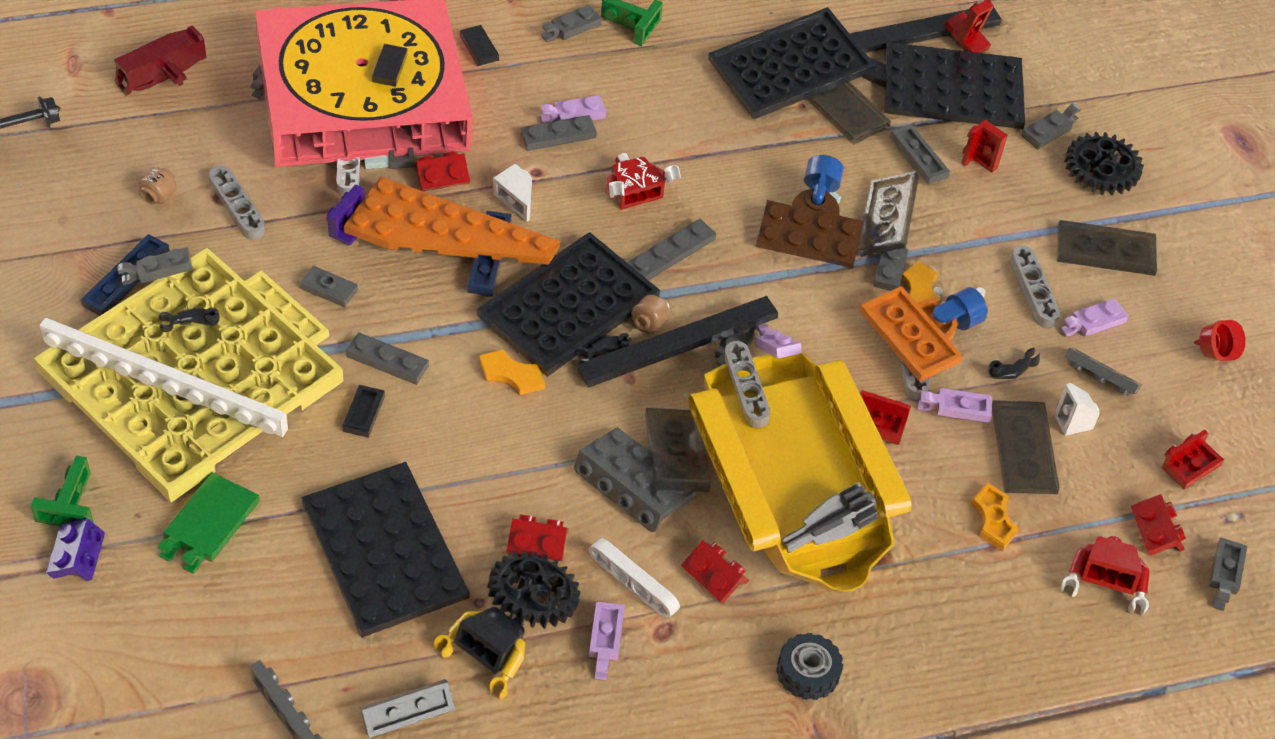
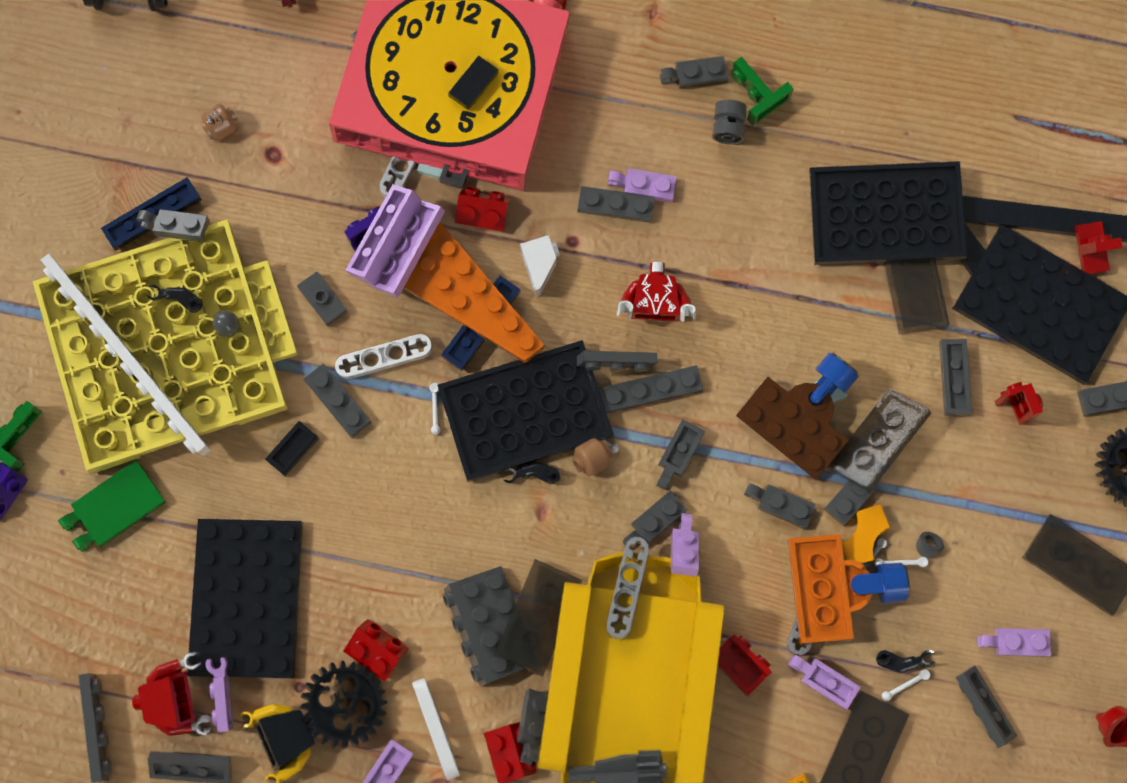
camera: 30 degrees right, 25 degrees up
(241, 200) = (279, 168): light grey beam -> none
(250, 322) = (226, 323): none -> dark grey piece
(354, 652) = (168, 699): none -> red torso
(379, 206) = (395, 241): none -> lavender slope
(404, 627) = (220, 691): none -> lavender plate
(410, 307) = (382, 352): none -> white beam
(474, 319) = (435, 429): none -> white hinge
(479, 45) = (592, 64): black tile -> none
(522, 377) = (446, 473): light orange tile -> none
(622, 43) = (729, 122): none -> dark grey wheel
(629, 232) = (616, 360): none -> dark grey plate
(677, 341) = (601, 500): black tile -> none
(724, 282) = (679, 452): none -> dark grey plate
(724, 533) = (532, 725): none -> dark grey plate
(834, 292) = (782, 504): none -> dark grey plate
(977, 278) = (926, 549): none -> dark grey piece
(1036, 373) = (923, 675): none -> white hinge
(1039, 285) = (983, 580): light grey beam -> none
(1076, 411) = (931, 742): white slope -> none

